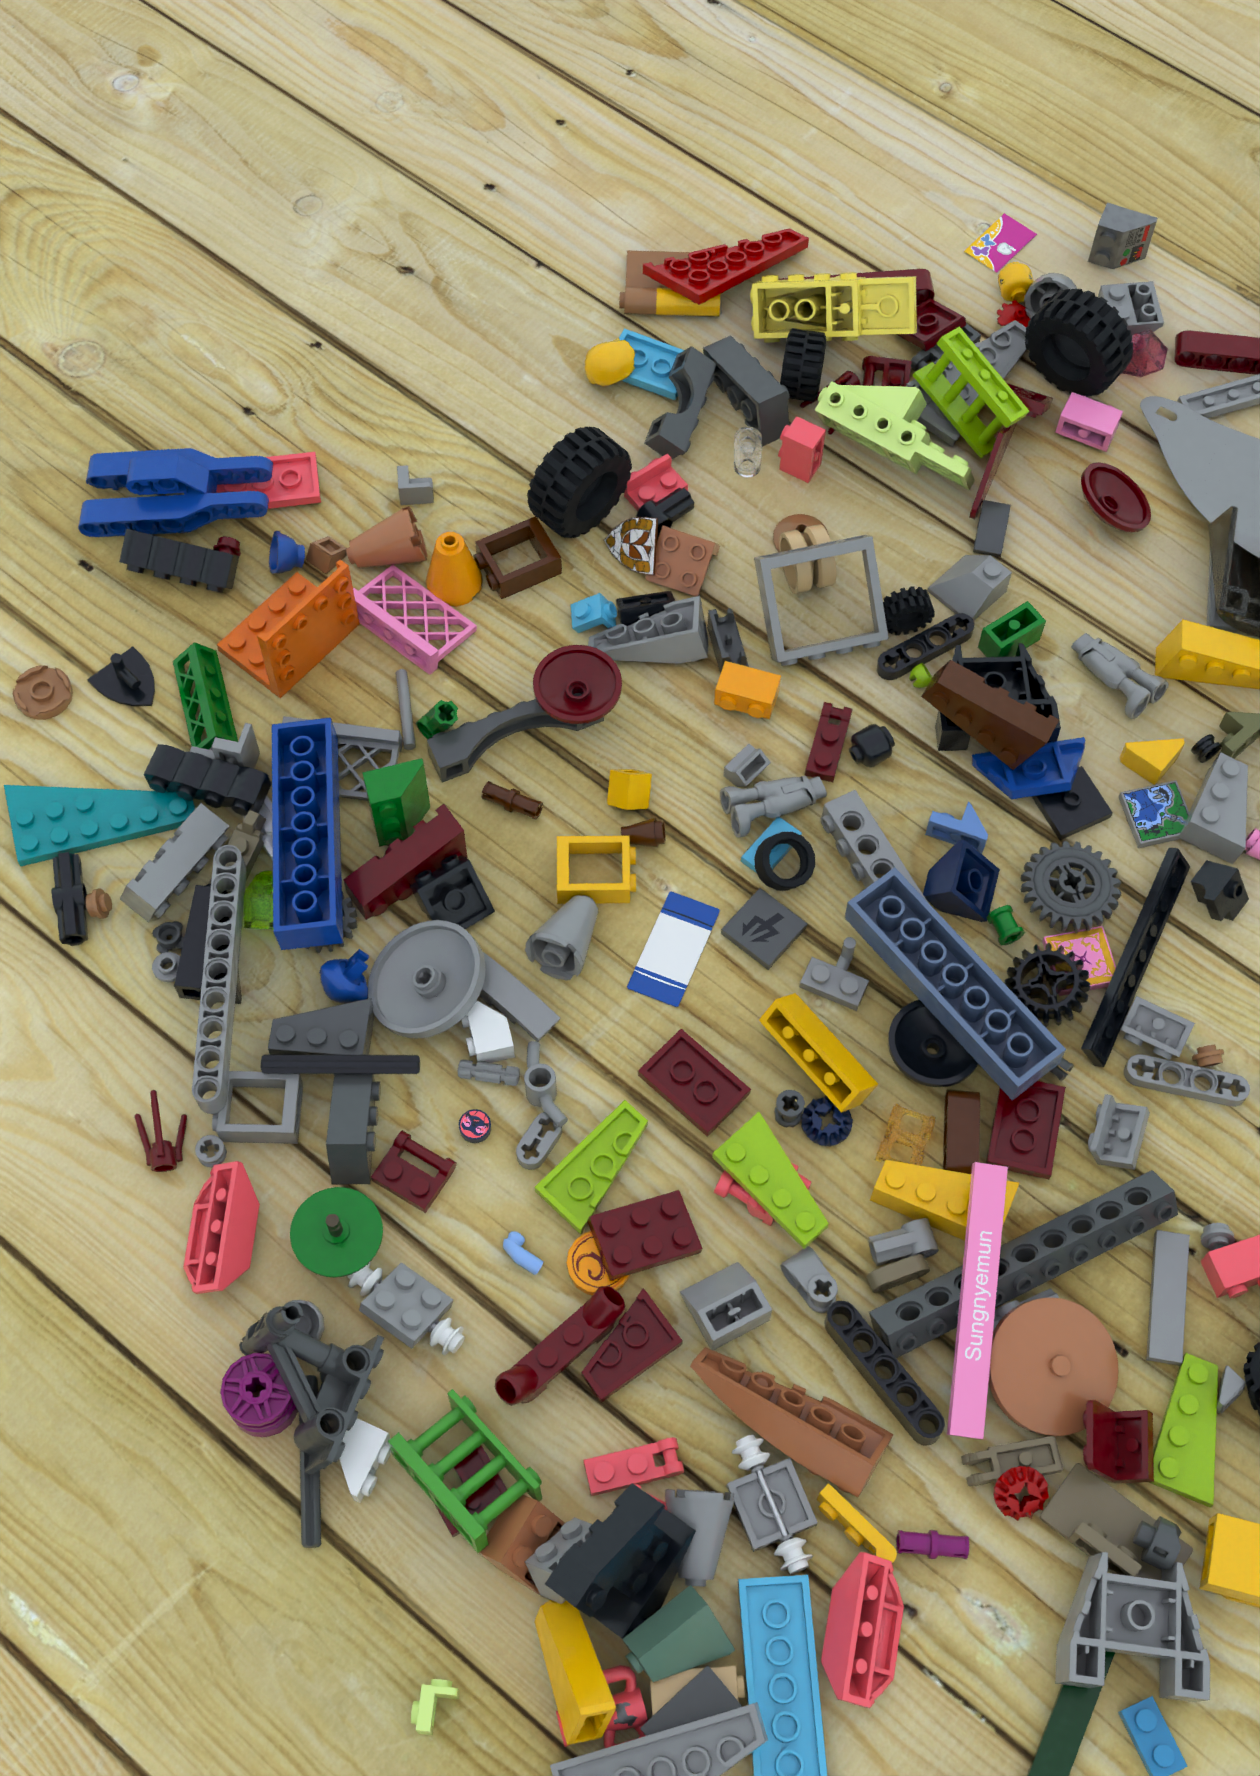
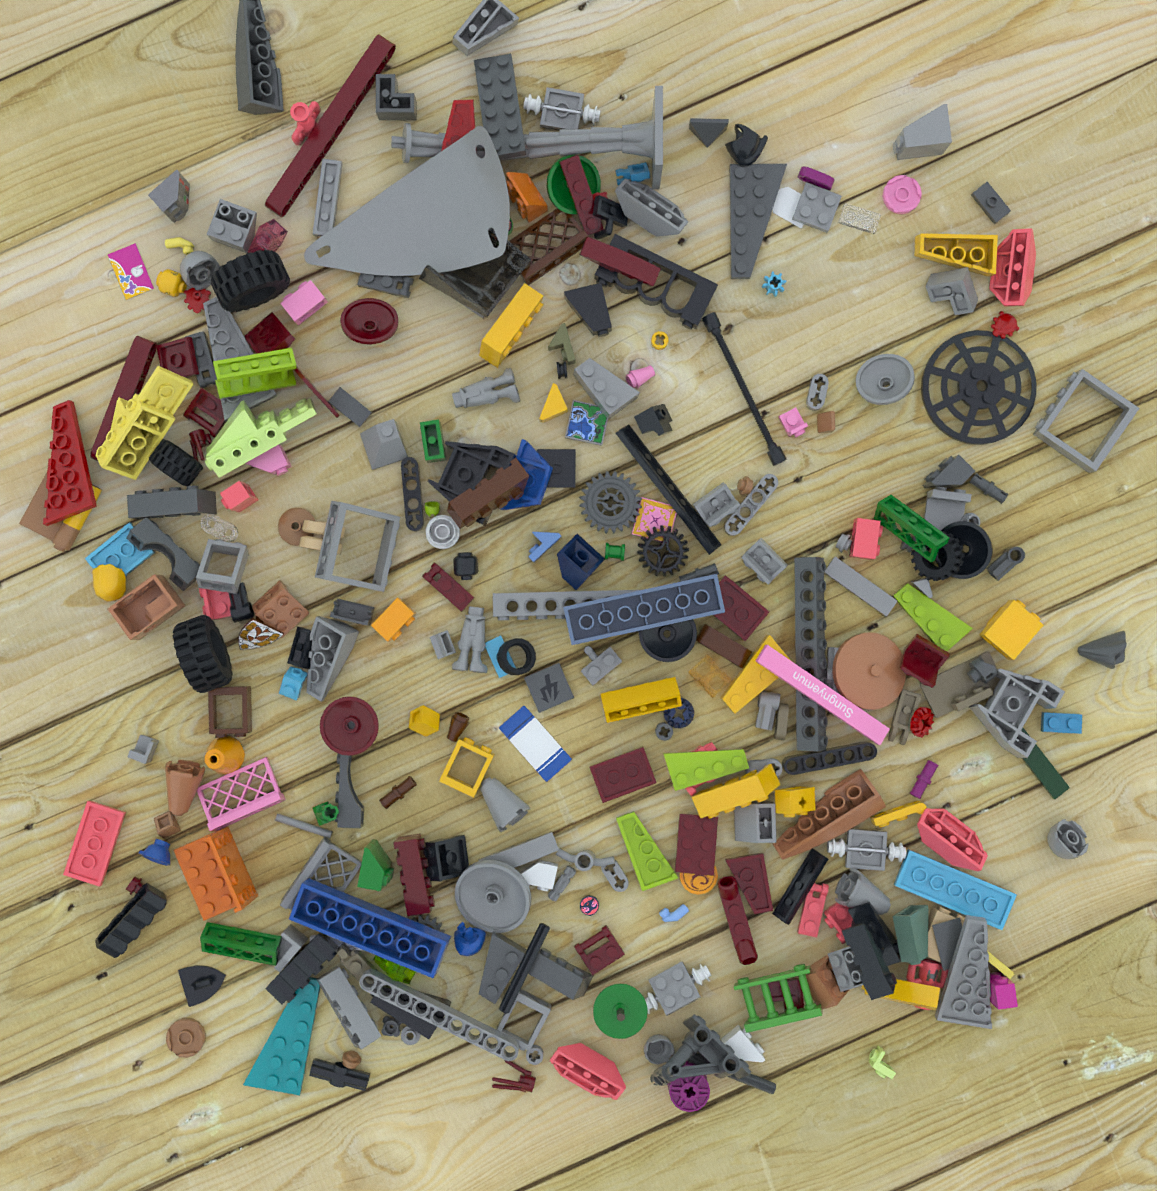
camera: 60 degrees left, 25 degrees up
(169, 473) = (66, 904): blue beam -> none
(584, 405) = (147, 607): none -> nougat piece
(660, 1425) = (800, 886): none -> black tile
(687, 482) = (220, 582): none -> light grey window
(761, 1245) = (736, 792): none -> yellow wedge
(792, 1343) = (795, 800): none -> yellow brick
(868, 469) = (272, 461): none -> bright pink slope
(899, 698) = (442, 532): none -> white piece
(908, 610) = (387, 495): black tyre -> none
(1067, 269) = (179, 242): none -> light yellow arm
(1174, 503) = (386, 284): none -> dark grey plate

